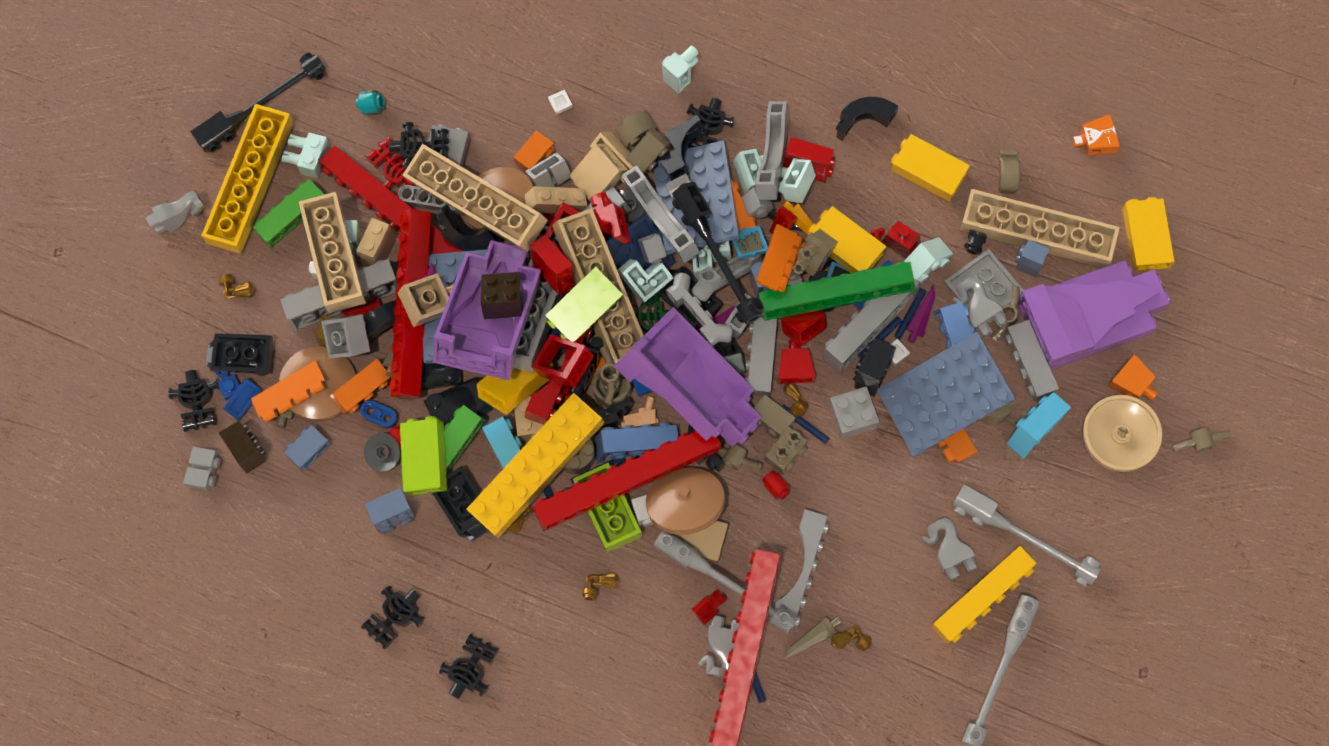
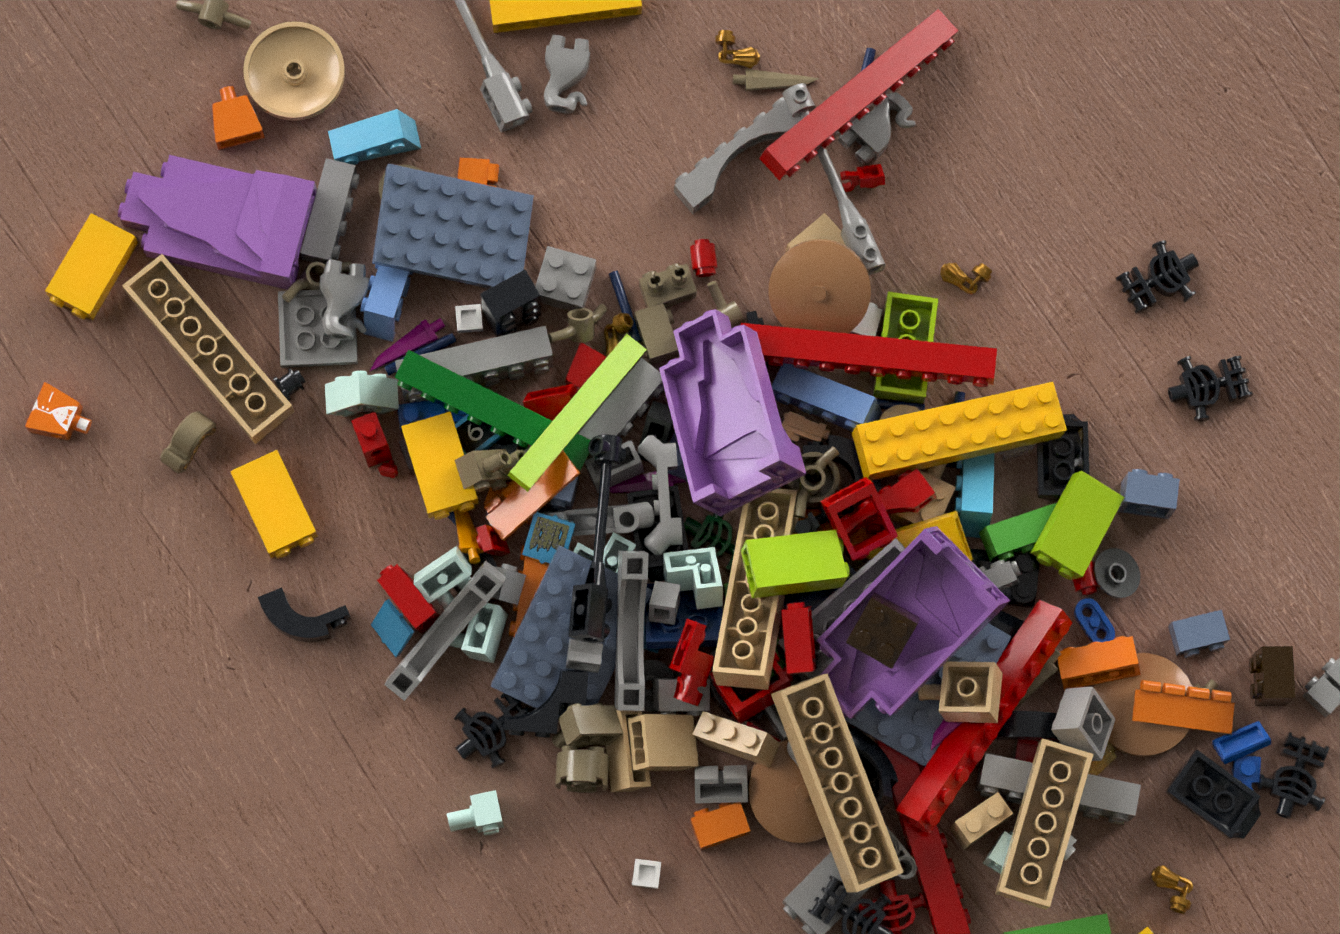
camera: 155 degrees left, 5 degrees up
(454, 396) = (1003, 574): none -> light grey brick
(784, 321) = (576, 413): none -> lime tile
(805, 137) = (392, 628): none -> dark azure piece
(823, 387) = (580, 325): none -> dark tan piece
(1031, 258) = (243, 318): sand blue brick -> none

